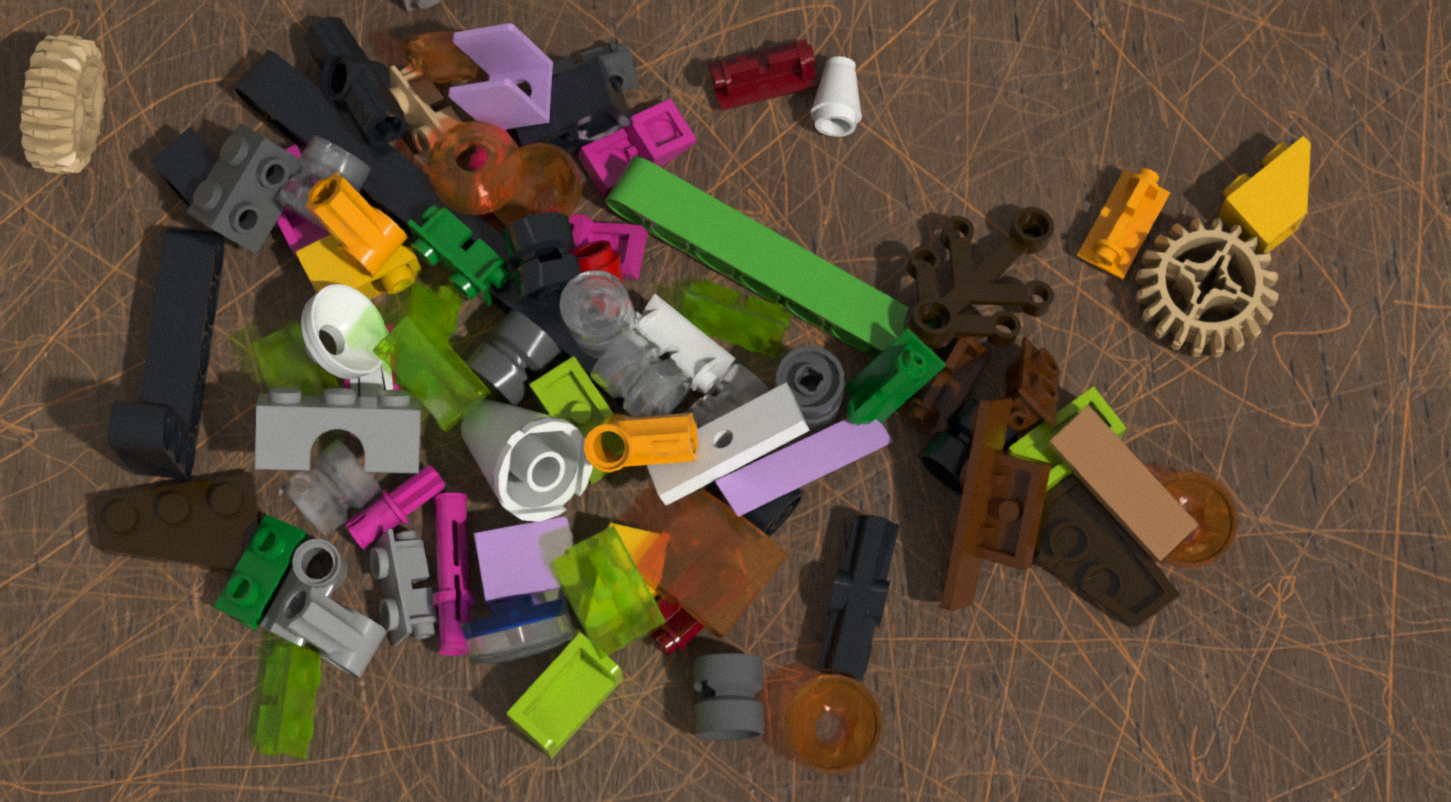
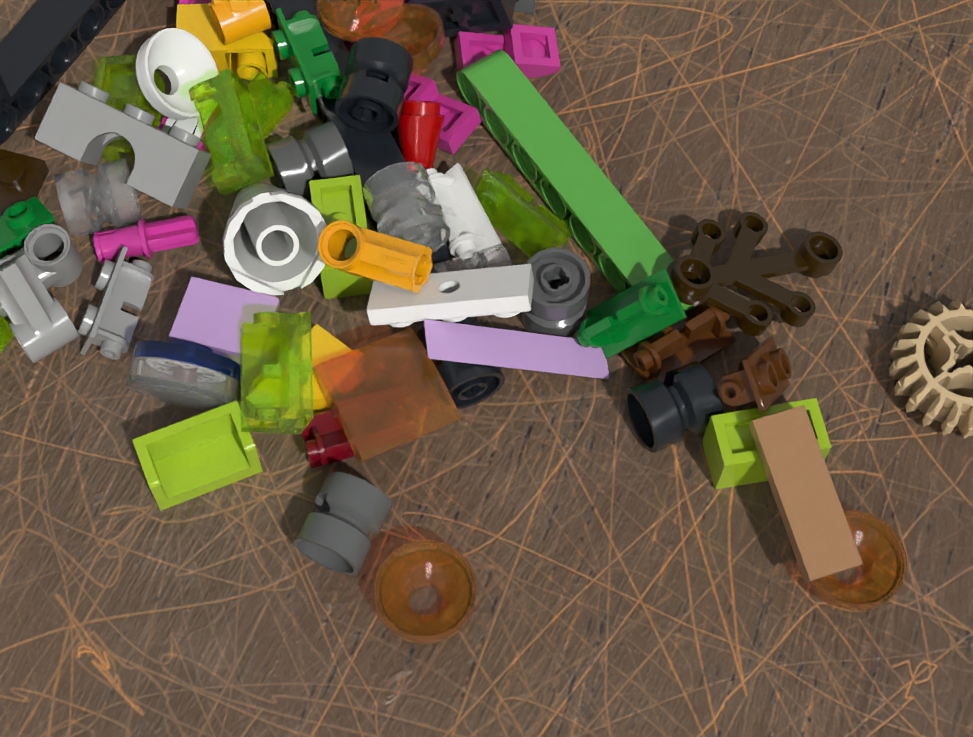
camera: 20 degrees right, 10 degrees down
(453, 593) = (189, 263): dark pink pin -> none
(597, 311) = (394, 133): clear wheel -> none
(764, 74) = (635, 42): dark red hinge -> none
(837, 99) = (696, 84): white cone -> none
(858, 597) = (509, 492): black piece -> none
(997, 506) = (673, 461): reddish brown bracket -> none
(1098, 556) = (748, 550): dark brown wing -> none
(1124, 222) = (909, 284): light orange hinge -> none

